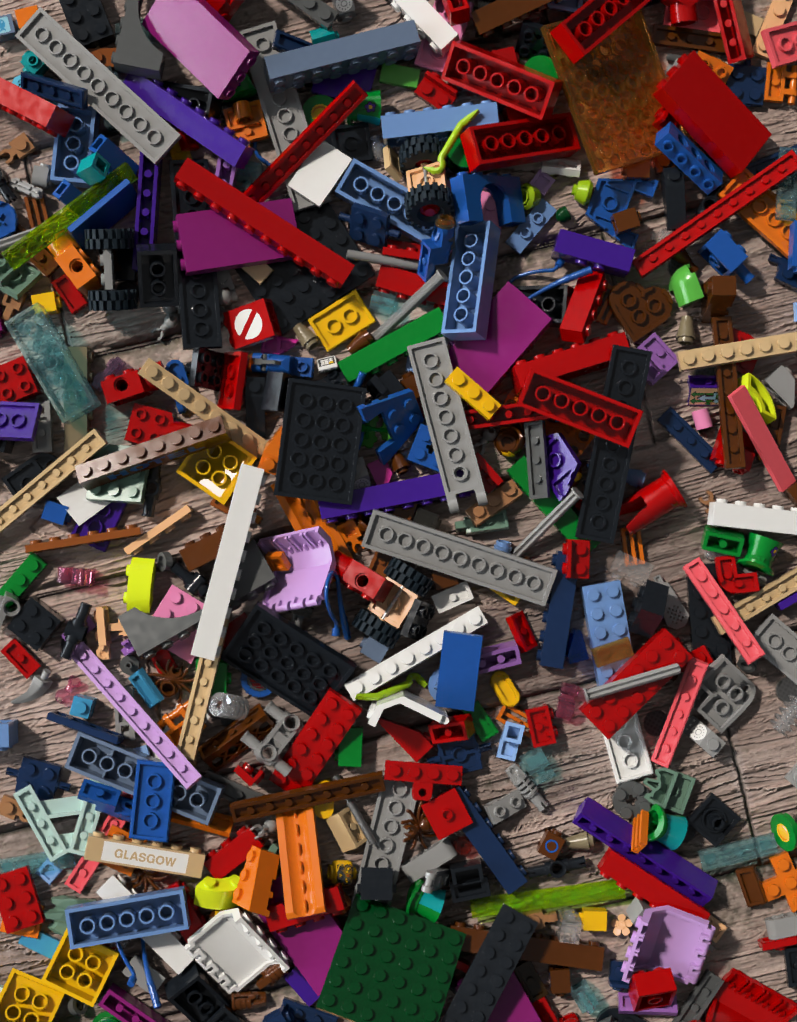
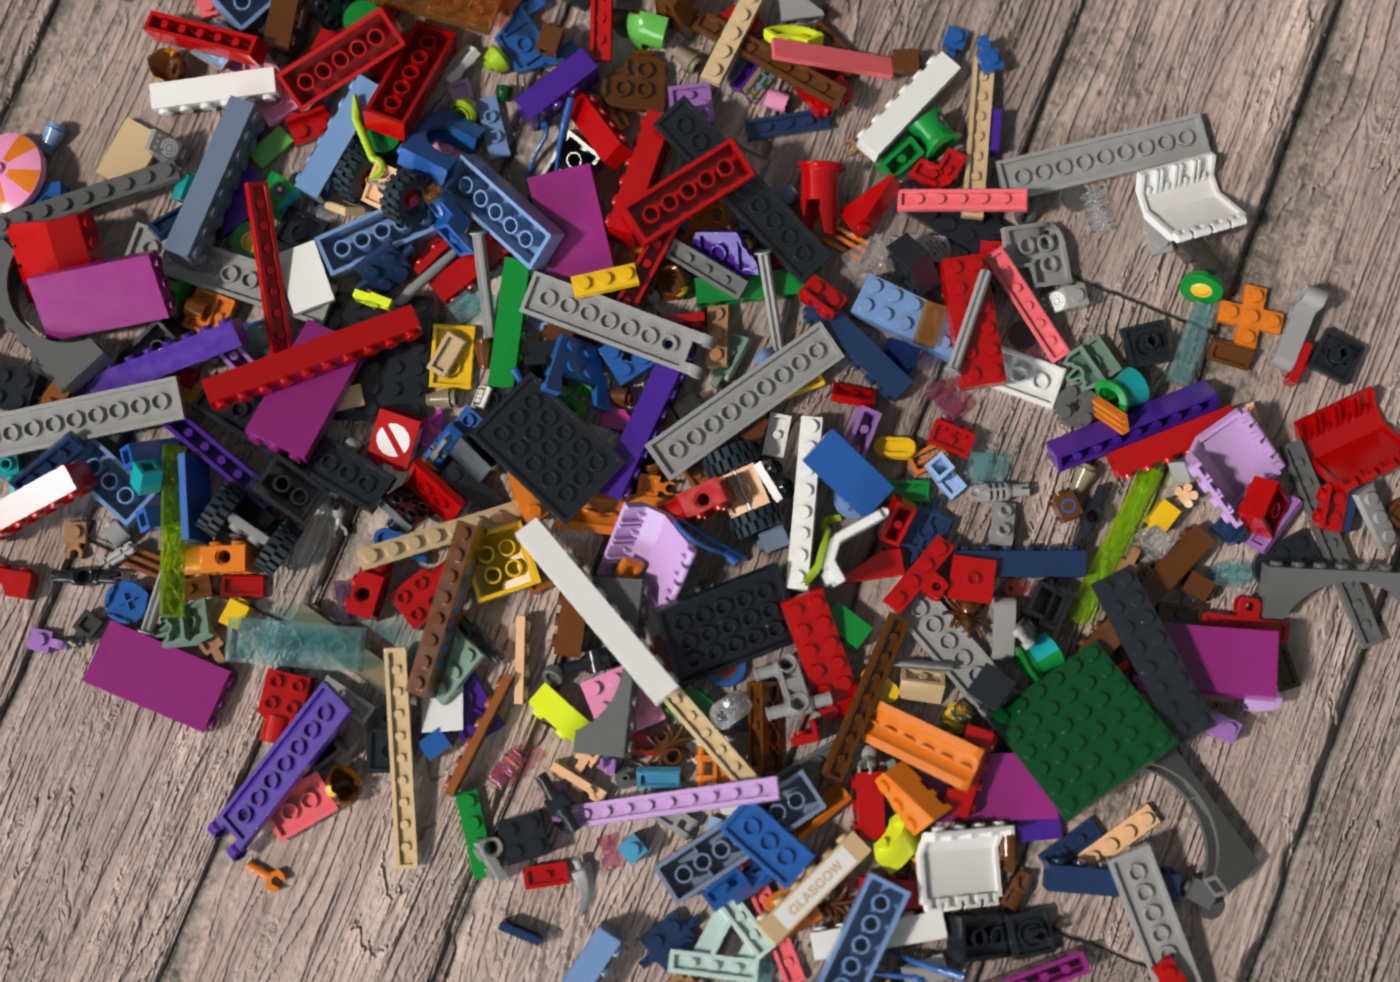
camera: 55 degrees left, 5 degrees down
(85, 727) = (654, 859): dark blue tile -> none
(338, 235) = (373, 300): none -> neon yellow tile
(339, 316) = (446, 354): none -> tan tile
(668, 545) = (868, 208): none -> red slope

